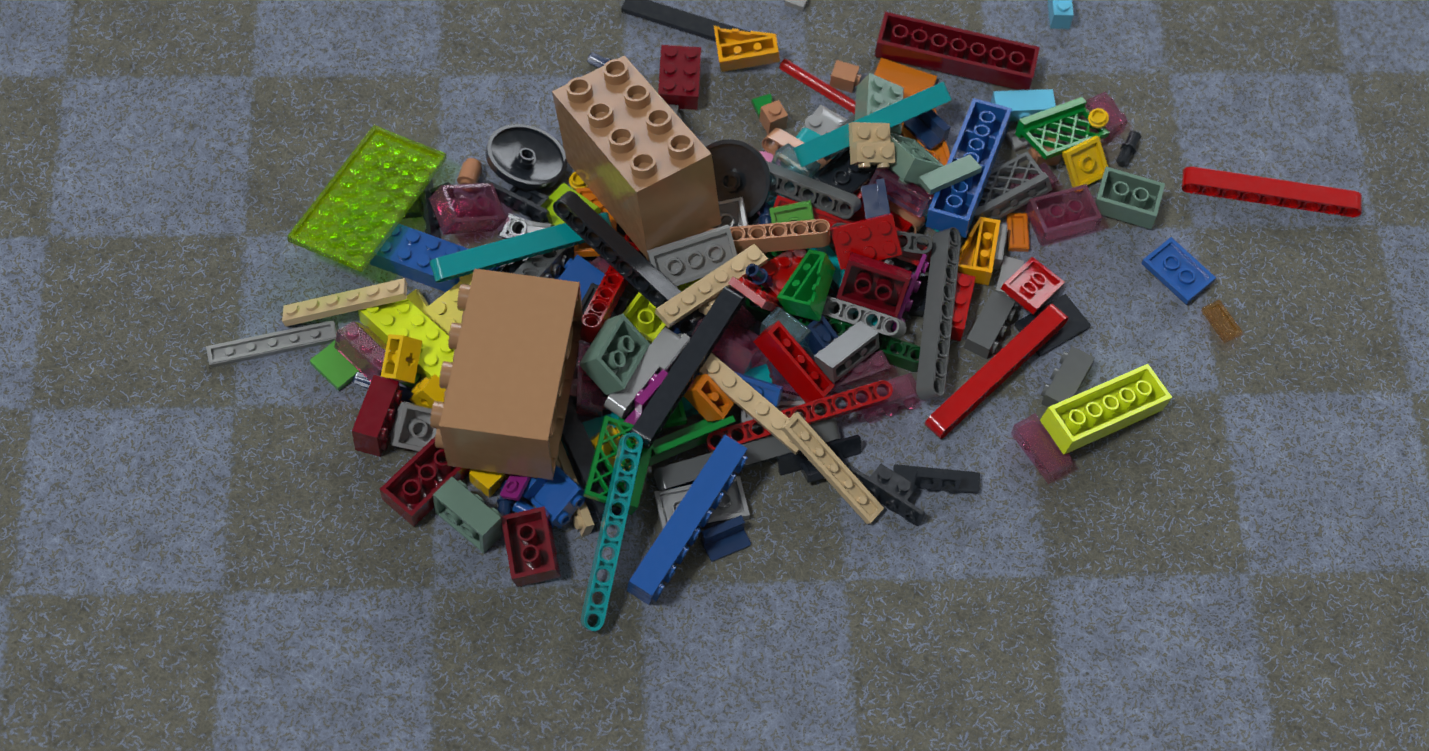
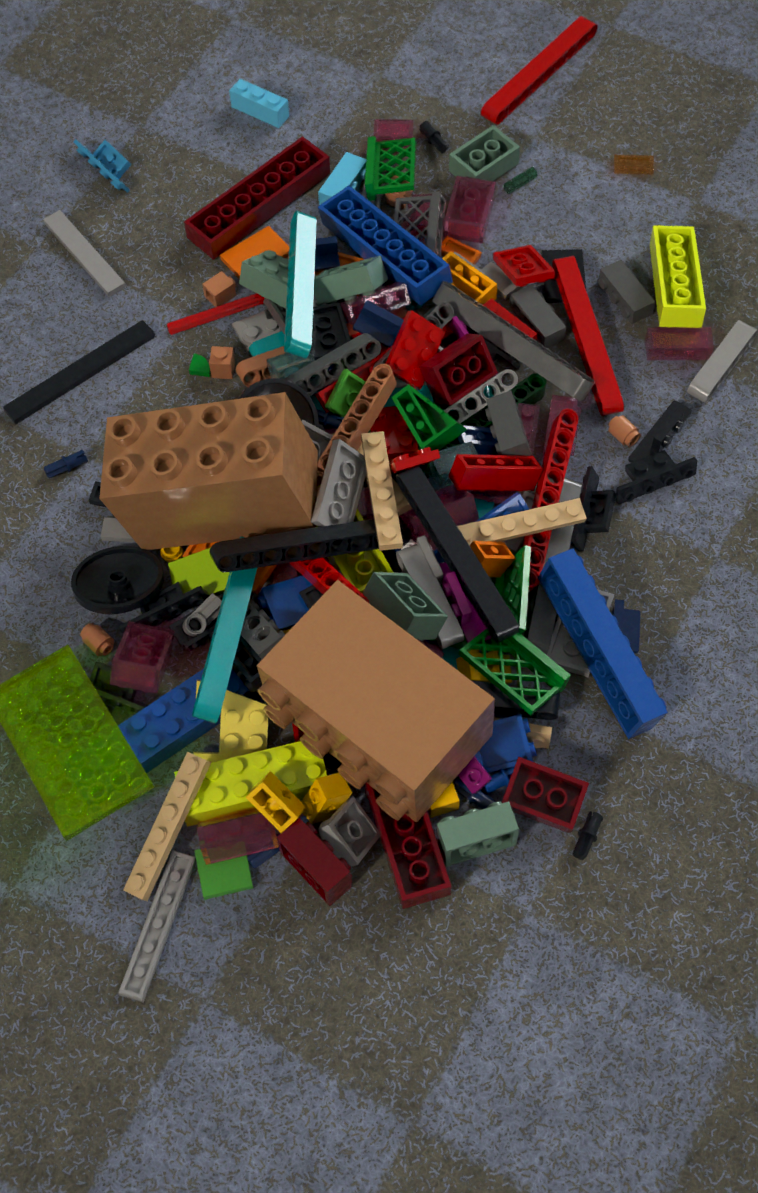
camera: 50 degrees left, 0 degrees up
(520, 598) = (587, 835): none -> black axle
(604, 540) = (582, 710): teal beam -> none
(680, 75) = (116, 400): dark red brick -> none
(745, 49) = (137, 345): light orange wedge -> none
(759, 276) = (394, 448): dark blue axle -> none
(832, 468) = (615, 499): tan plate -> none
(871, 145) = (324, 294): tan plate -> none
(918, 447) = (624, 430): none -> nougat brick
(949, 174) = (391, 255): sand green tile -> none
(1049, 492) = (722, 361): none -> light grey beam
(1085, 162) = (431, 168): yellow plate -> none
(1098, 118) = (399, 135): yellow plate -> none
(1132, 239) = (520, 180): none -> clear green axle
(1178, 270) = (570, 165): blue plate -> none

